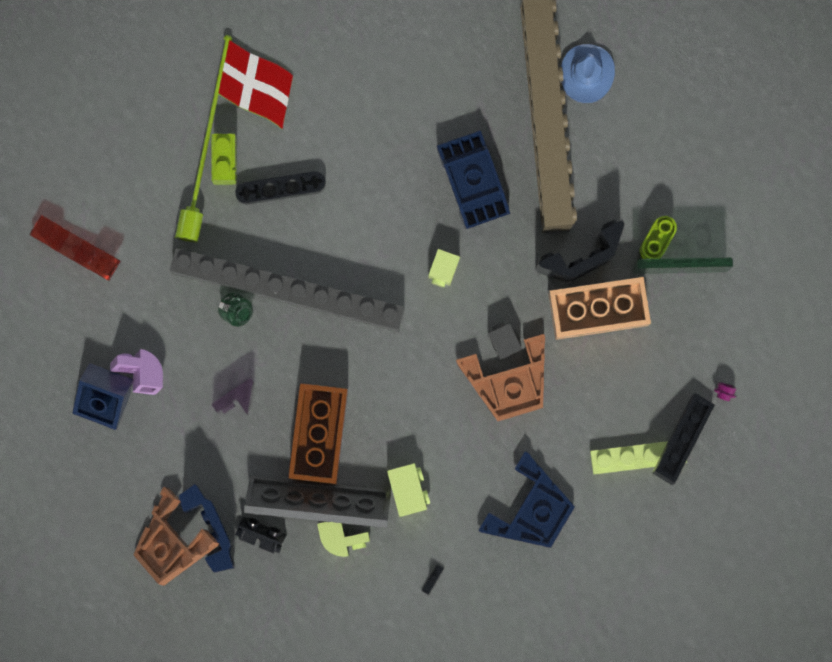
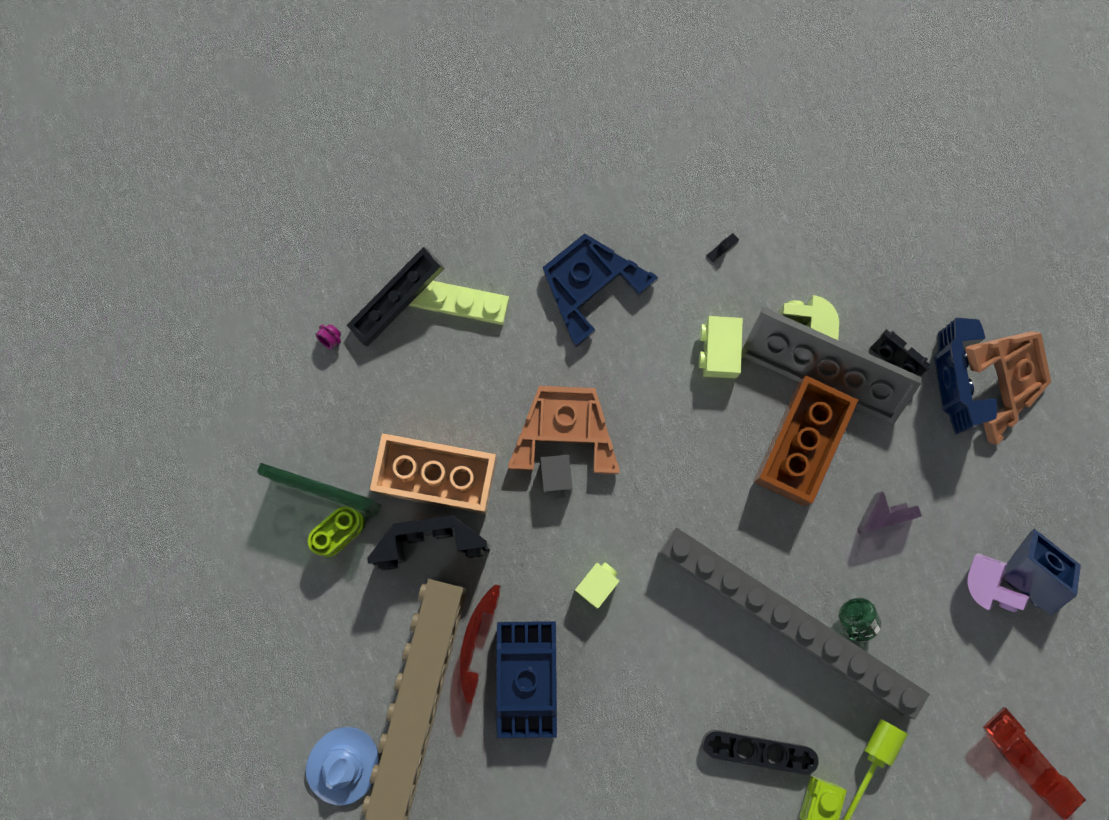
camera: 160 degrees left, 5 degrees down
(517, 167) = (469, 677): none -> clear red slope

